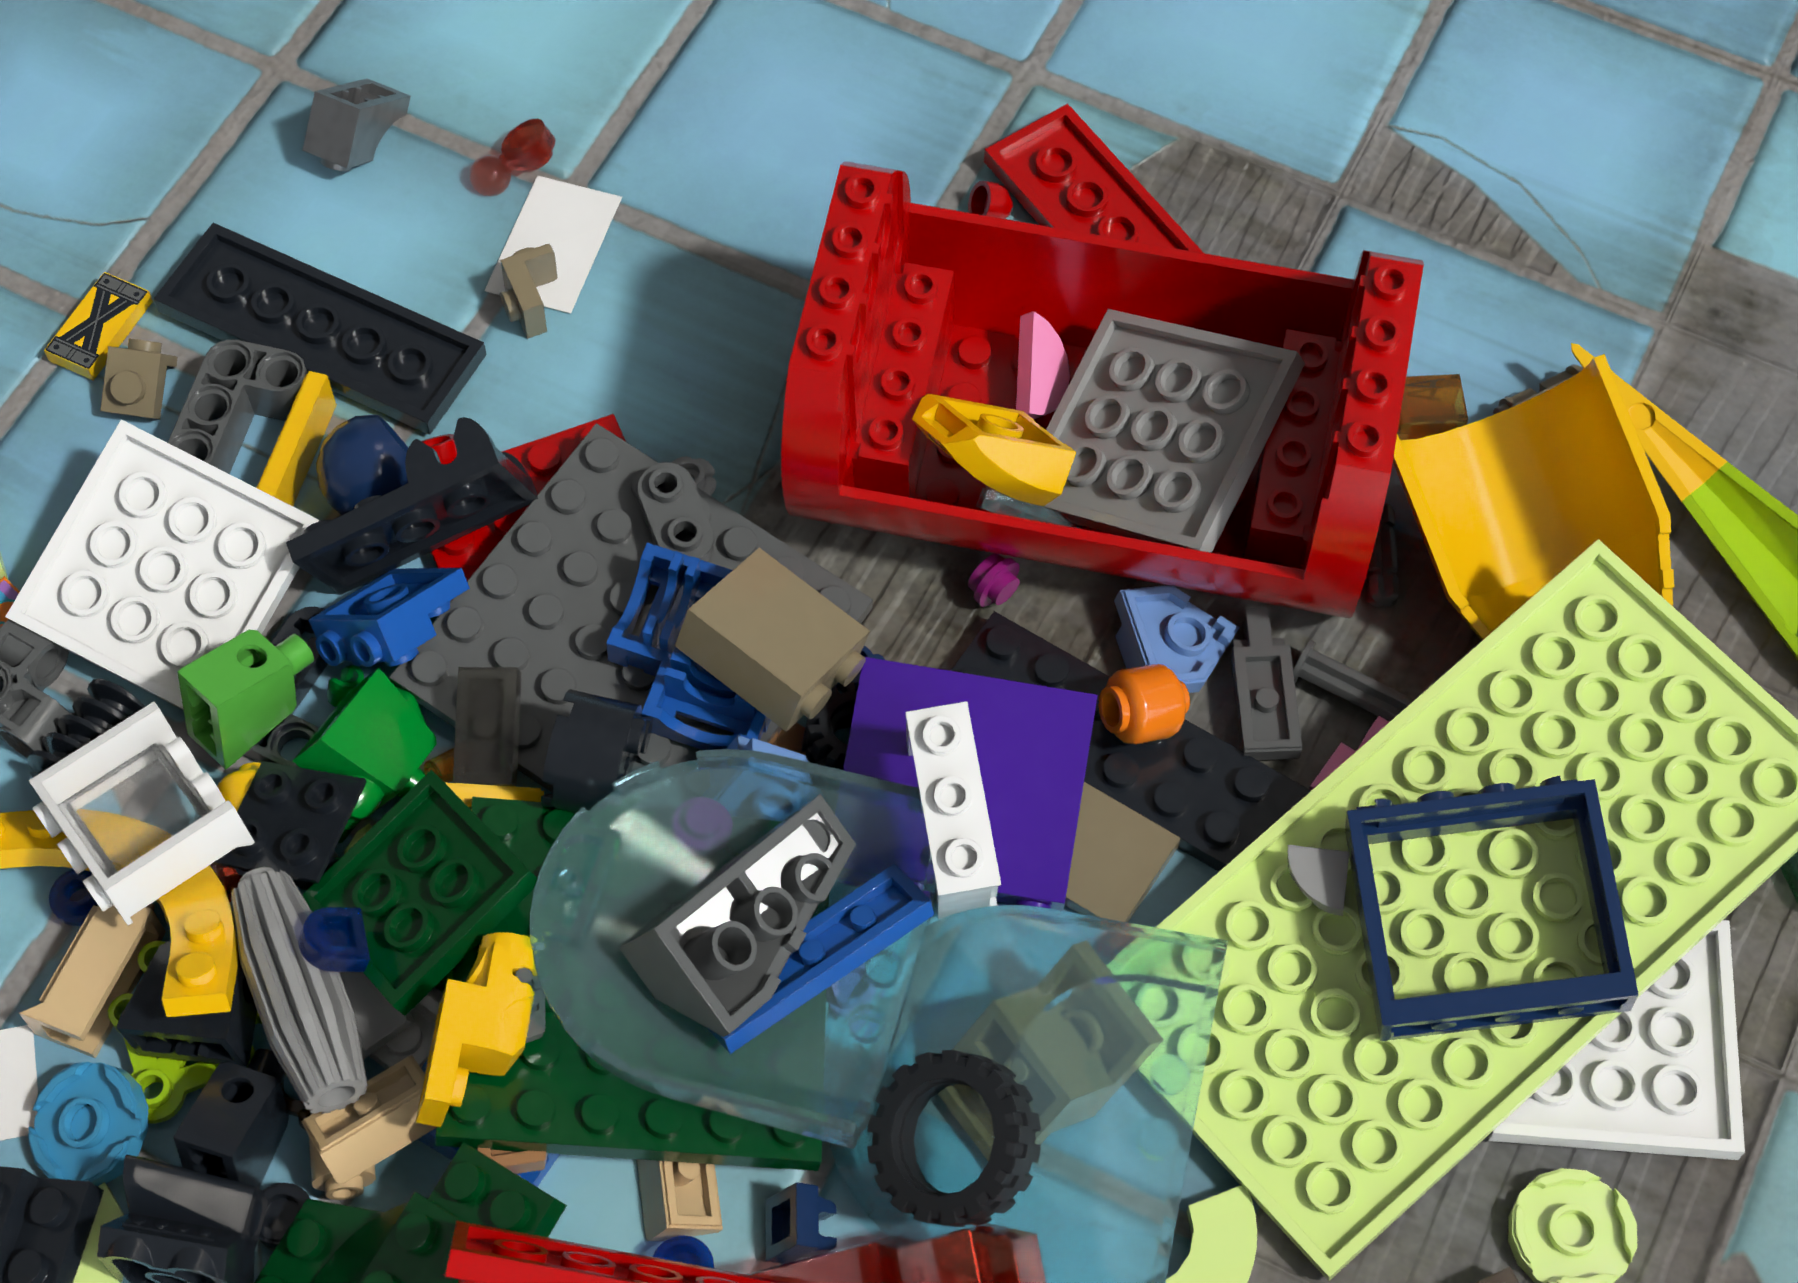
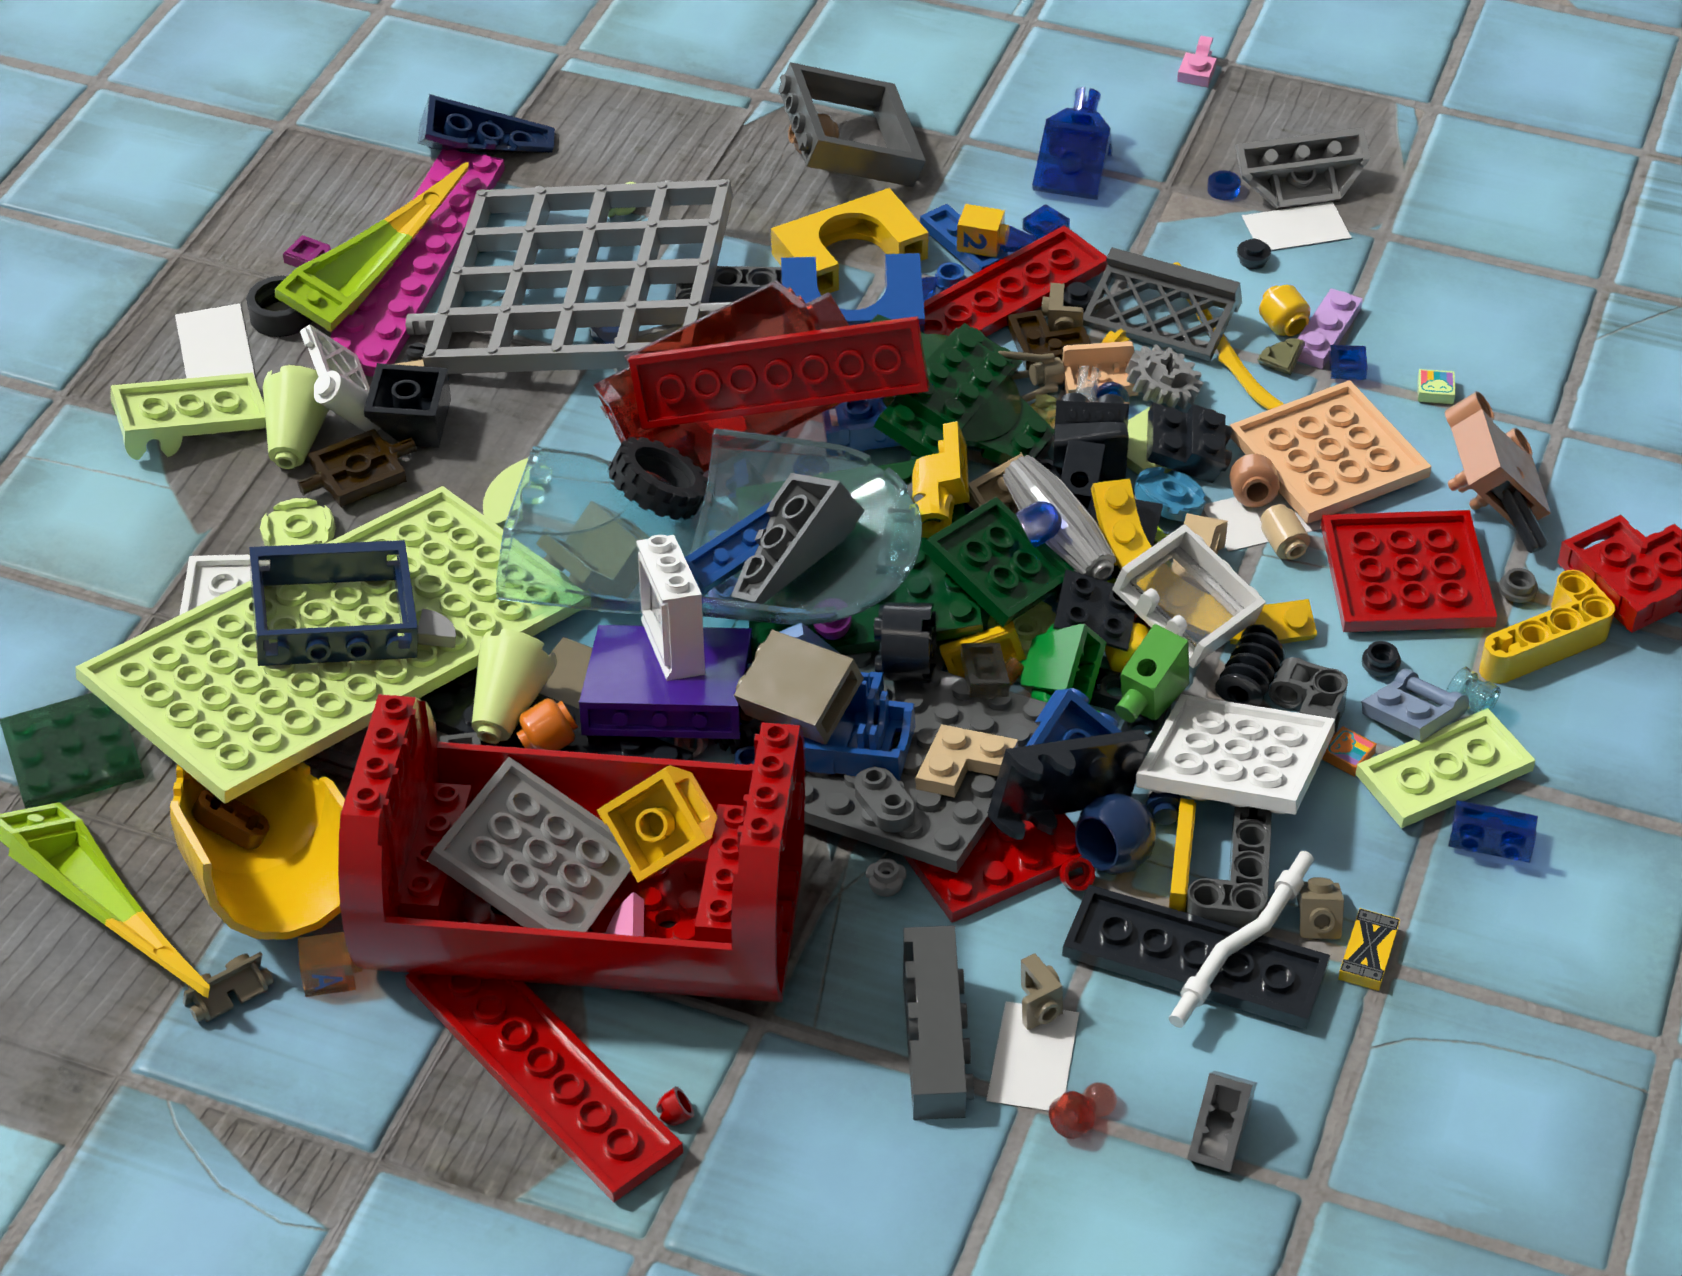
camera: 175 degrees right, 15 degrees down
(173, 380) = (1198, 987): none -> white bar
(556, 585) = (956, 752): none -> tan plate
(665, 252) = (935, 1024): none -> dark grey wedge
(1201, 778) = (507, 682): none -> yellowish green cone

